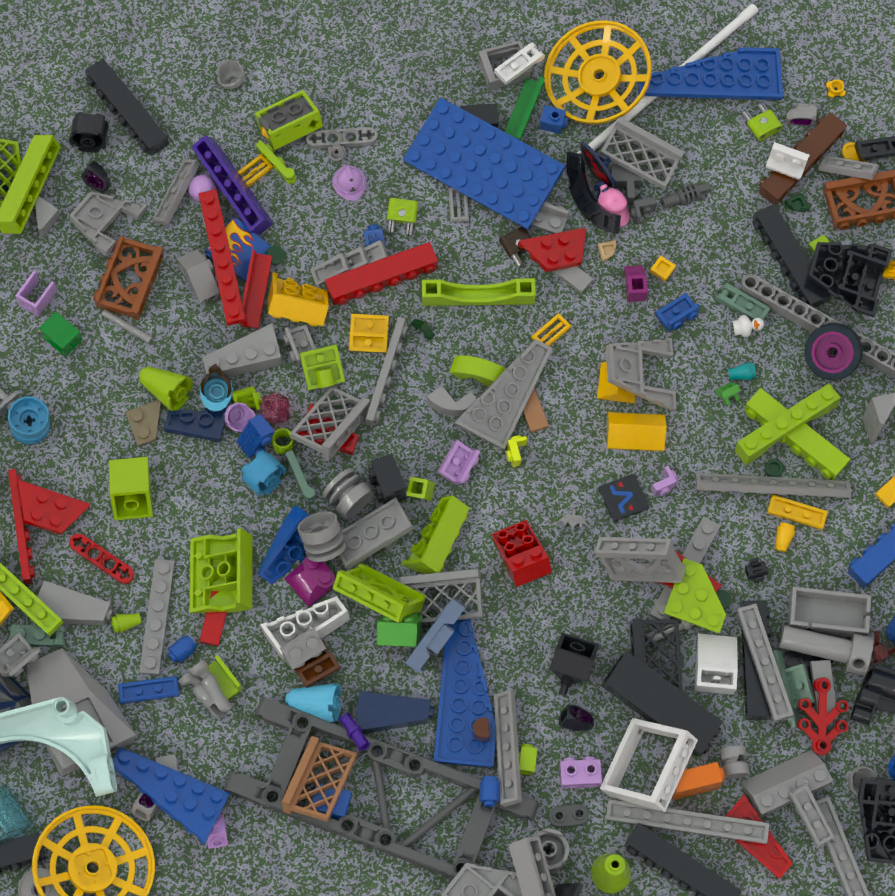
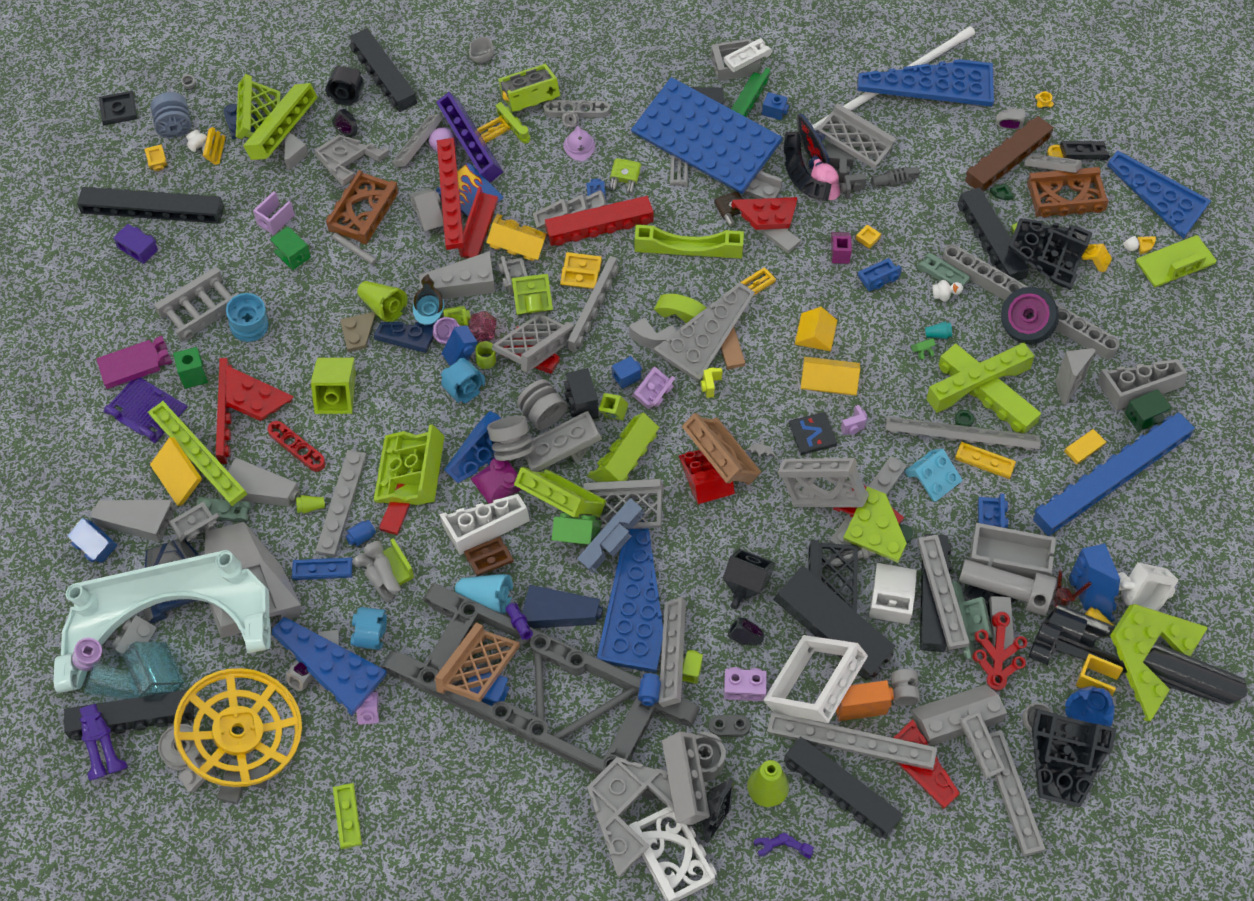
camera: 10 degrees right, 10 degrees down
(206, 751) = (369, 628): none -> dark azure brick
(277, 253) = (503, 198): dark green tile -> none
(301, 477) = (498, 388): sand green plate -> none
(303, 648) = (478, 538): light grey bracket -> none
(418, 324) = (633, 268): dark green tile -> none
(429, 448) = (626, 372): none -> blue brick
(481, 730) = (647, 631): reddish brown brick -> none
(535, 528) = (721, 449): none -> medium nougat fence
(598, 63) = (819, 63): yellow dish -> none
(606, 250) = (815, 217): tan tile -> none
(626, 369) = (824, 315): light grey wing -> none
(748, 531) = (935, 473): none -> medium azure bracket
(756, 570) = (940, 508): black gear -> none
(764, 124) = (973, 124): lime piece -> none
(784, 536) = (971, 479): yellow cone -> none
(787, 161) = (994, 149): white bracket -> none
(807, 570) = (992, 511): none -> blue bracket

